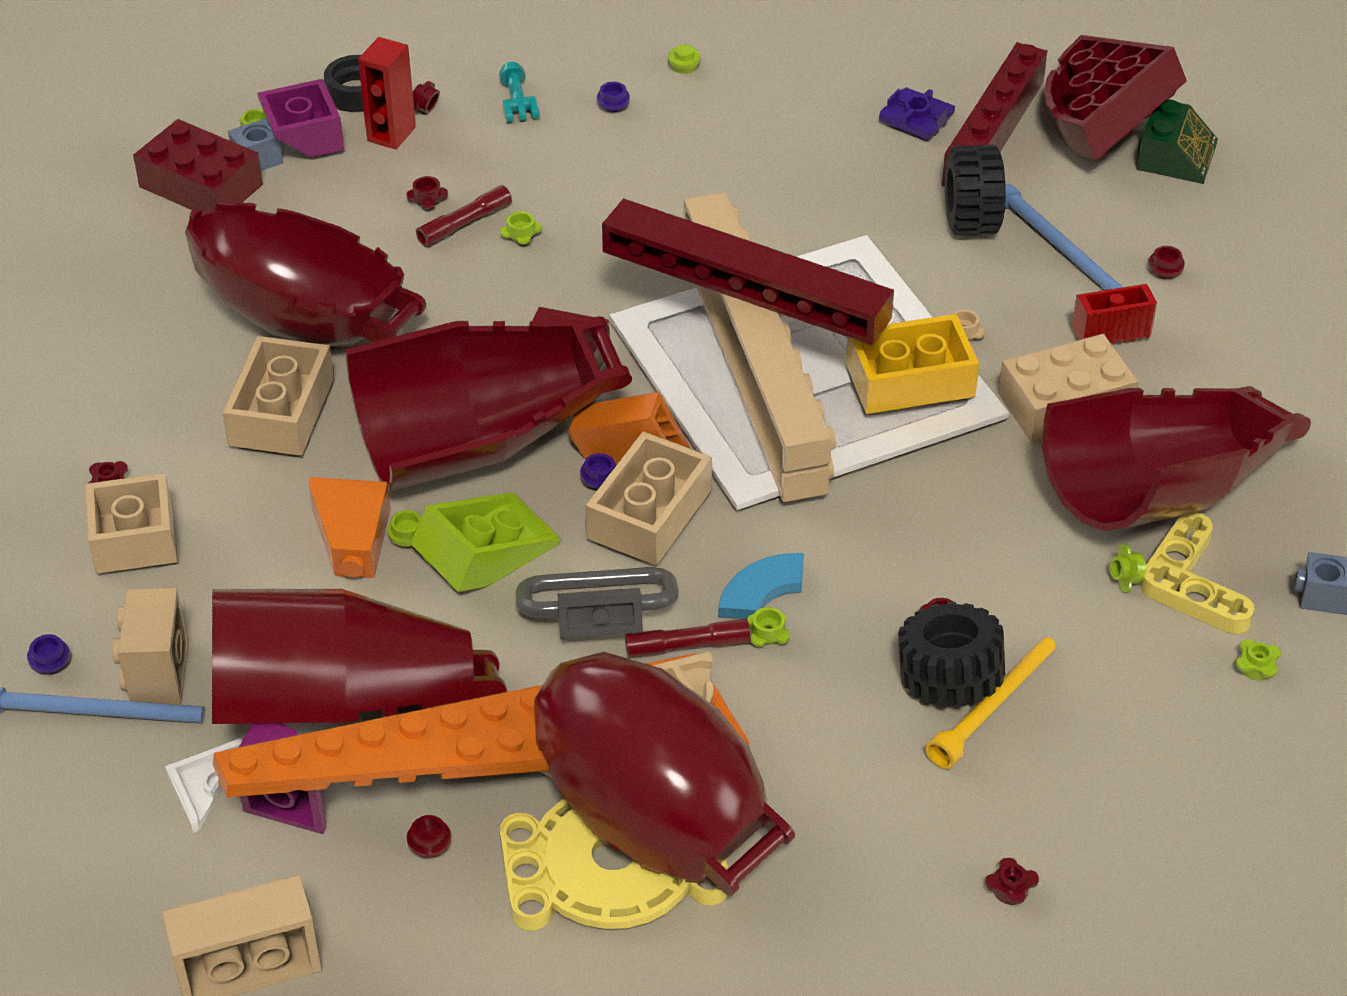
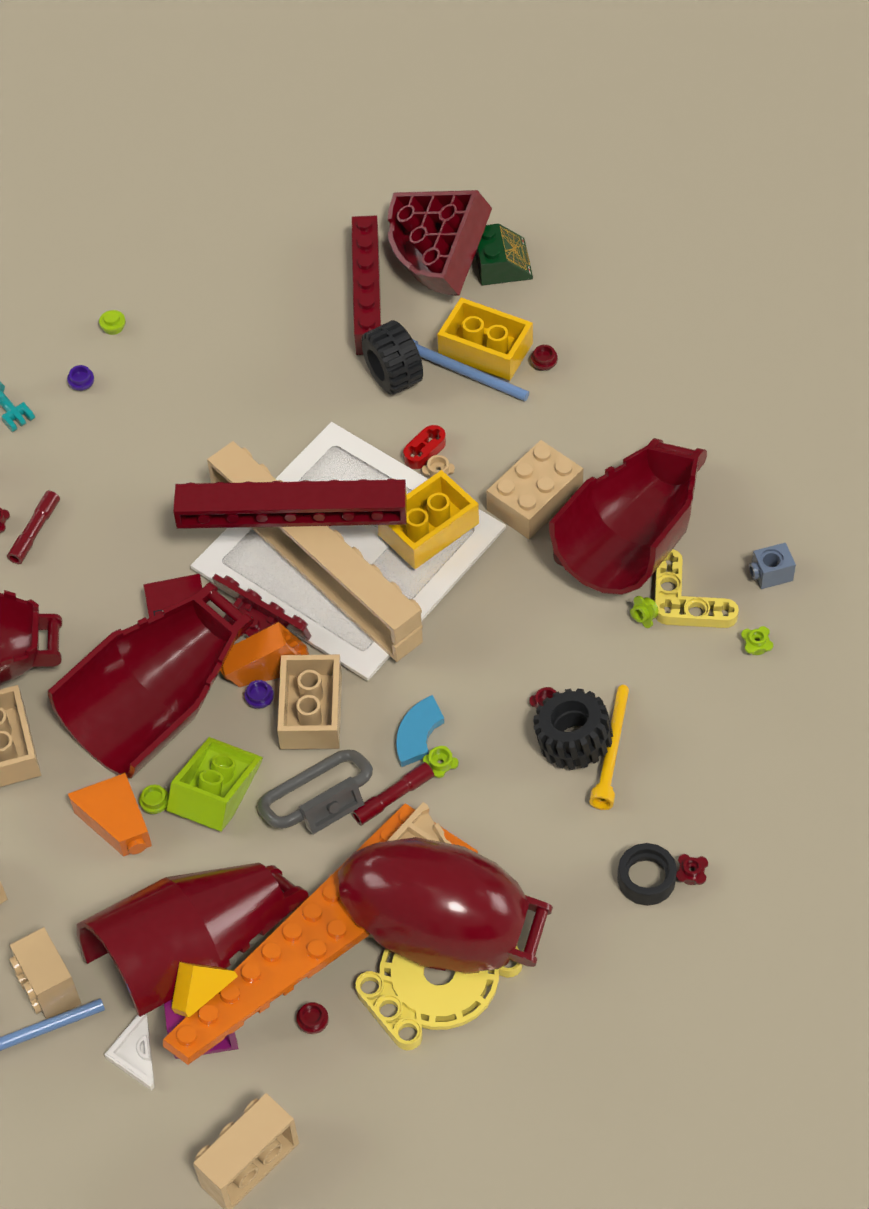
camera: 25 degrees left, 10 degrees up
(298, 714) = (198, 985): none -> yellow slope
(520, 227) = (82, 514): lime plate -> none
(649, 378) = (263, 613): none -> dark red bracket
(916, 112) = (307, 301): dark purple piece -> none
(955, 833) = (651, 853): none -> black tyre
(970, 294) = (422, 444): none -> red beam
(1103, 214) = (485, 338): none -> yellow brick
(1116, 313) = (536, 418): red brick -> none

